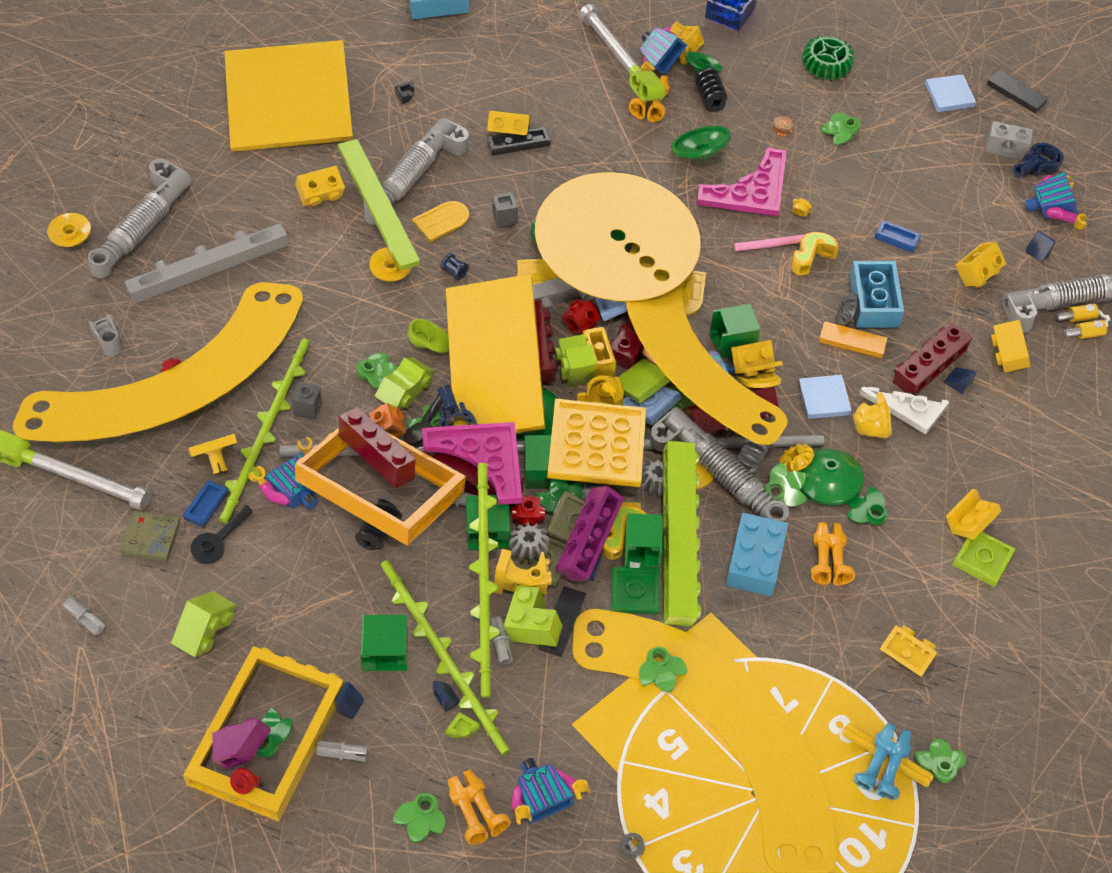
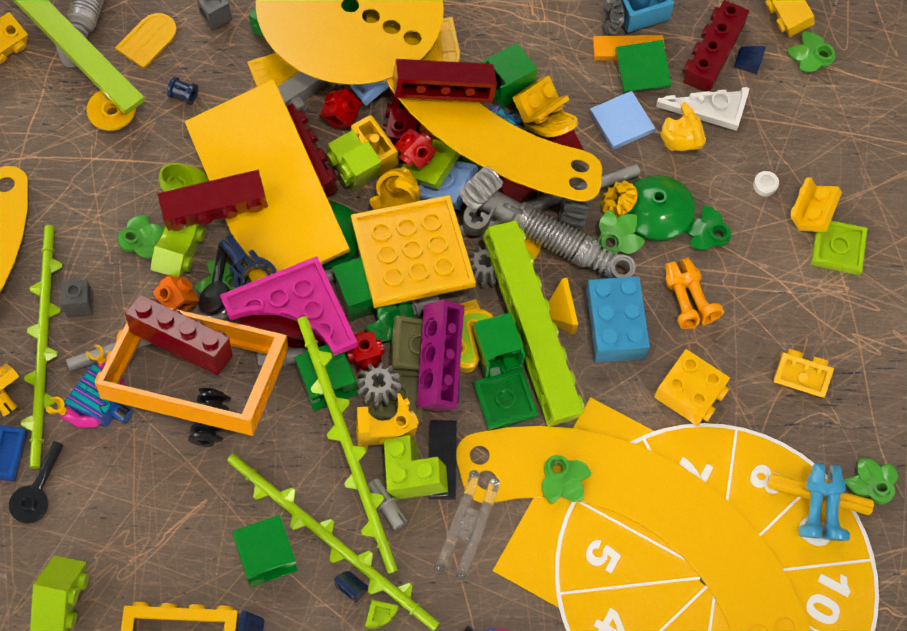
camera: 20 degrees left, 10 degrees up
(444, 353) = (212, 200): none -> dark red brick
(563, 679) = (468, 525): none -> clear piece
(626, 359) = (415, 148): none -> red brick
(672, 407) = (480, 188): none -> light grey gear
(674, 314) = (444, 80): none -> dark red brick
(711, 531) = (562, 308): none -> yellow slope
(802, 629) = (692, 388): none -> yellow brick
(859, 358) = (643, 66): none -> green tile
(935, 485) = (766, 183): none -> white tile
(1017, 391) = (809, 53): none -> bright green plate

